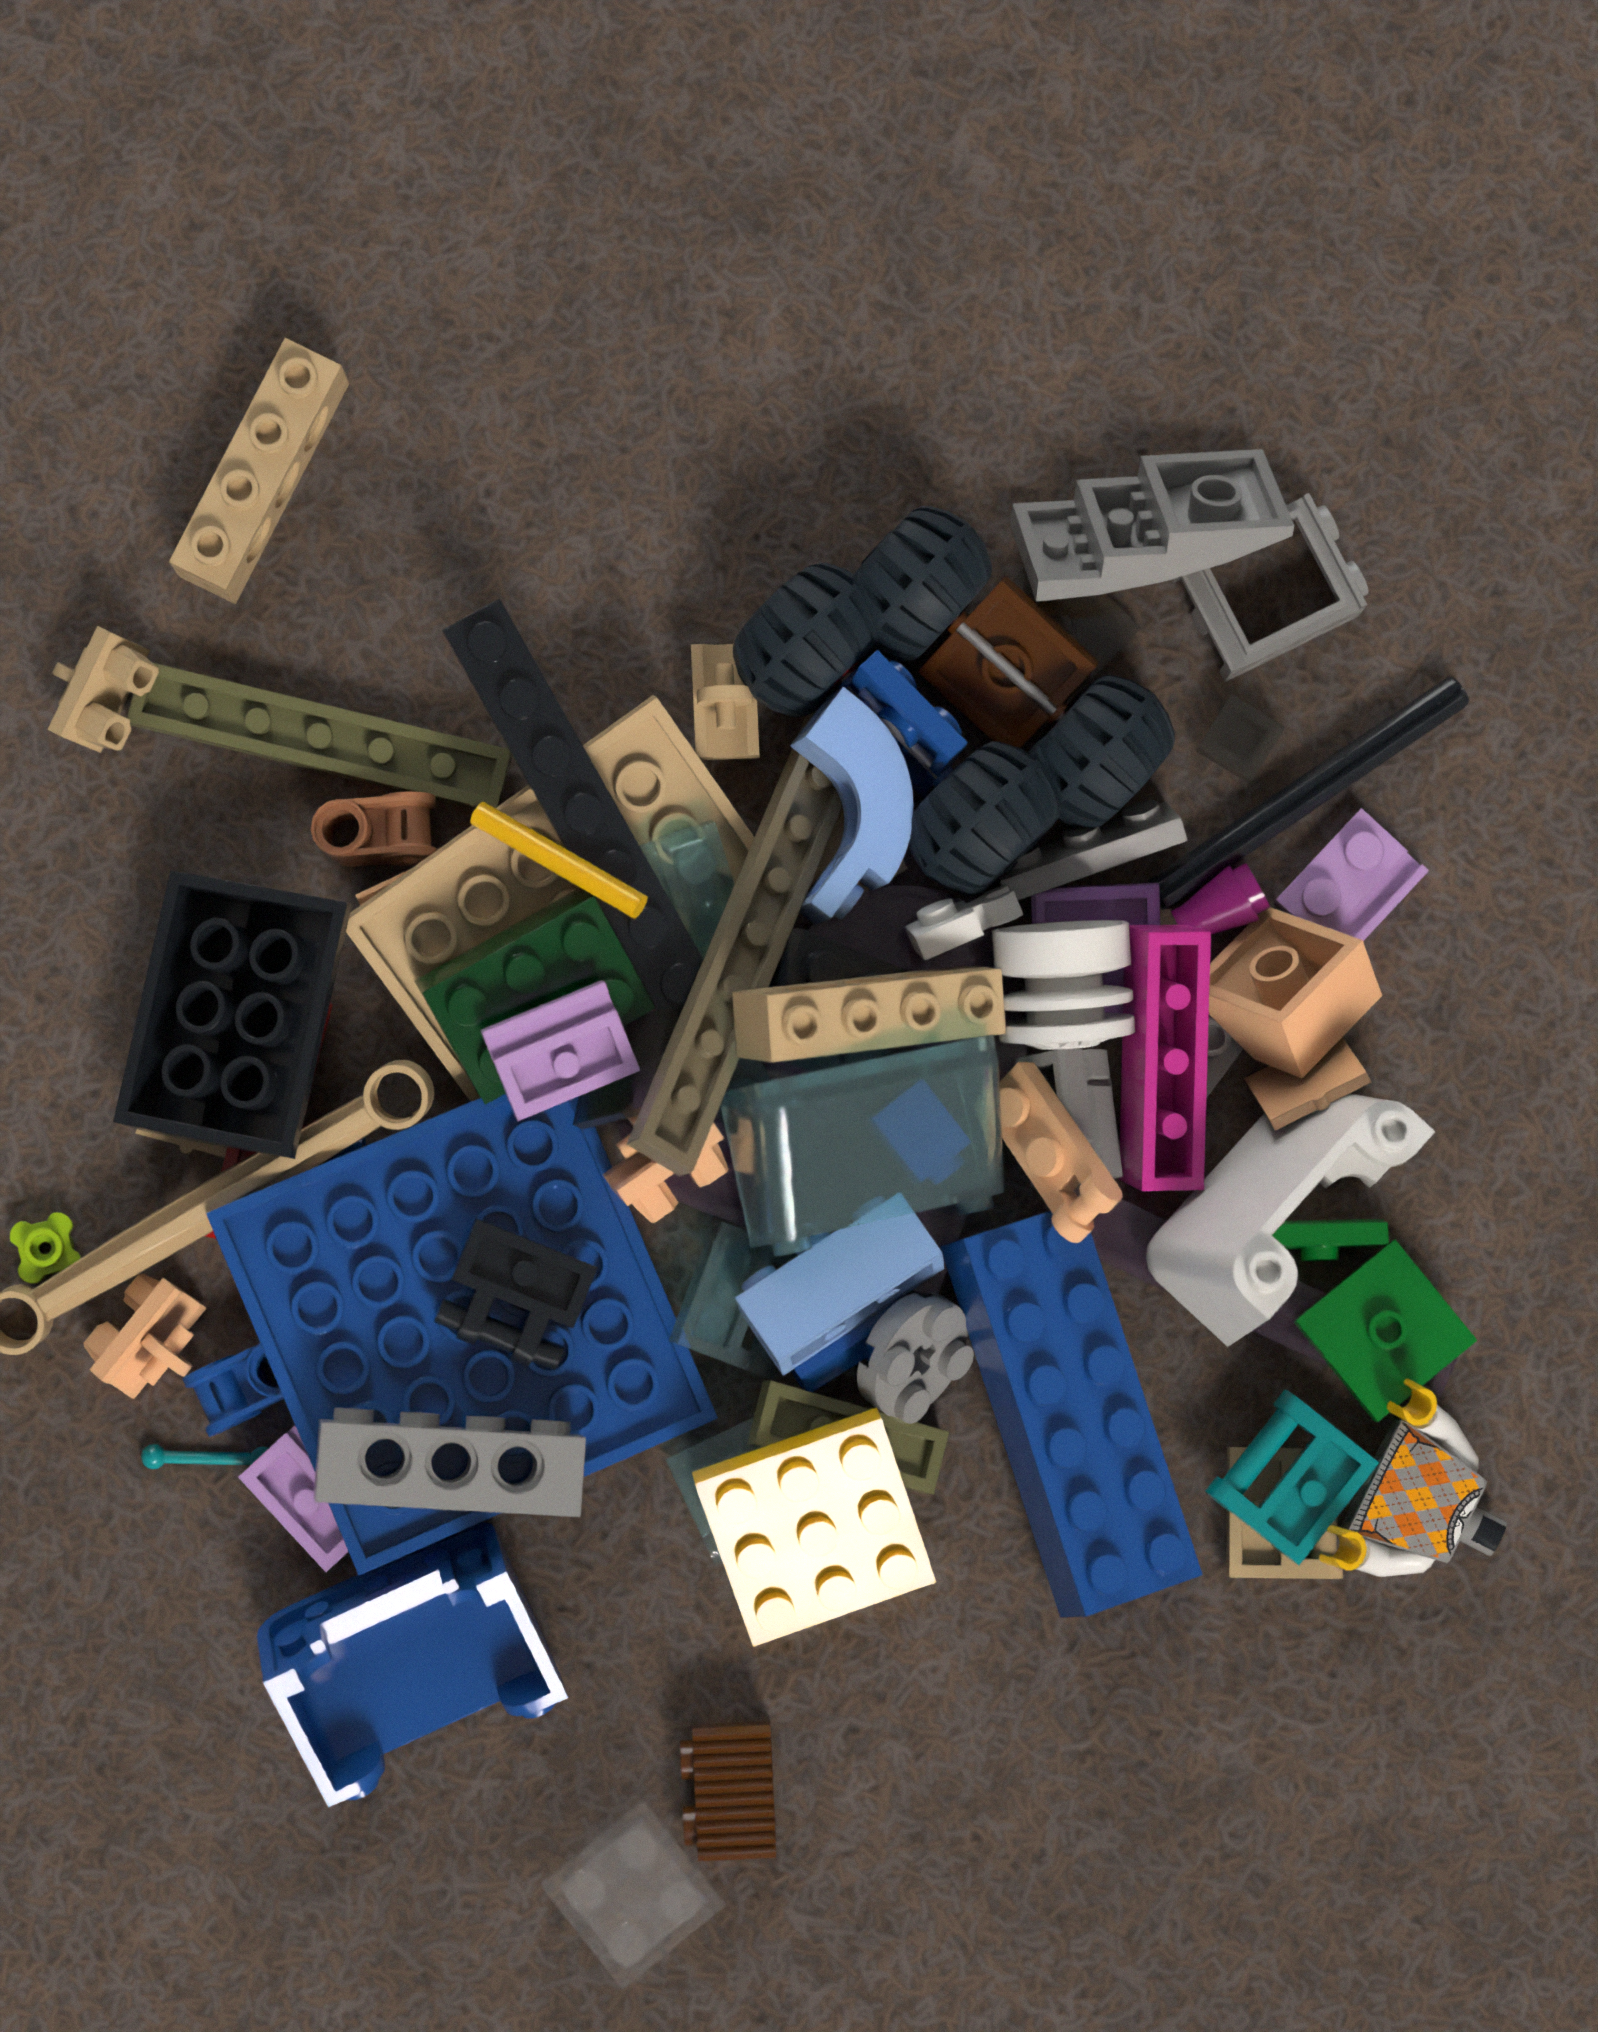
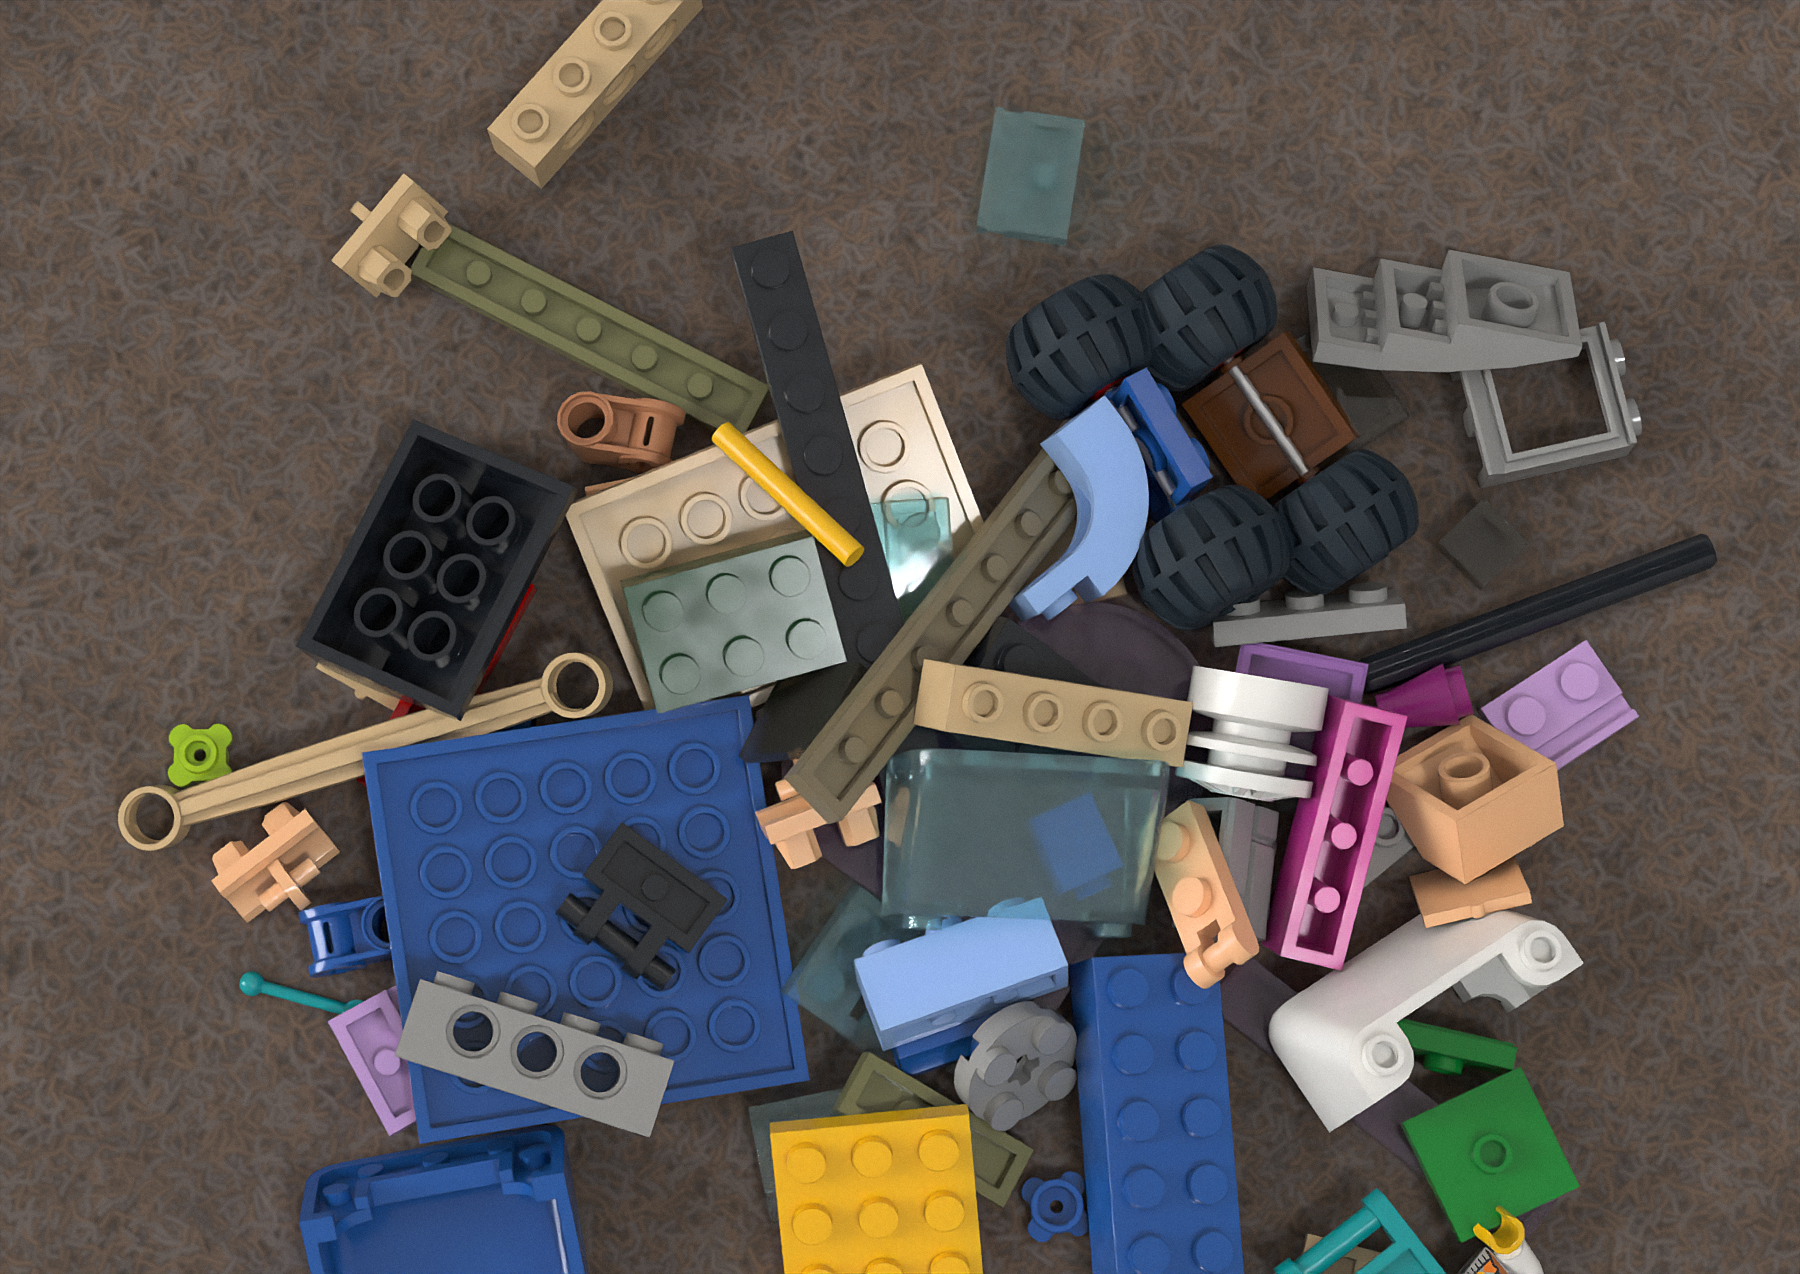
camera: 20 degrees right, 5 degrees down
(560, 1050) = (743, 675): lavender plate -> none
(715, 478) = (1030, 176): none -> clear light blue plate
(722, 706) = (984, 393): tan hips -> none
(949, 924) = (1150, 651): white plate -> none
(965, 1474) = (1042, 1193): none -> blue plate

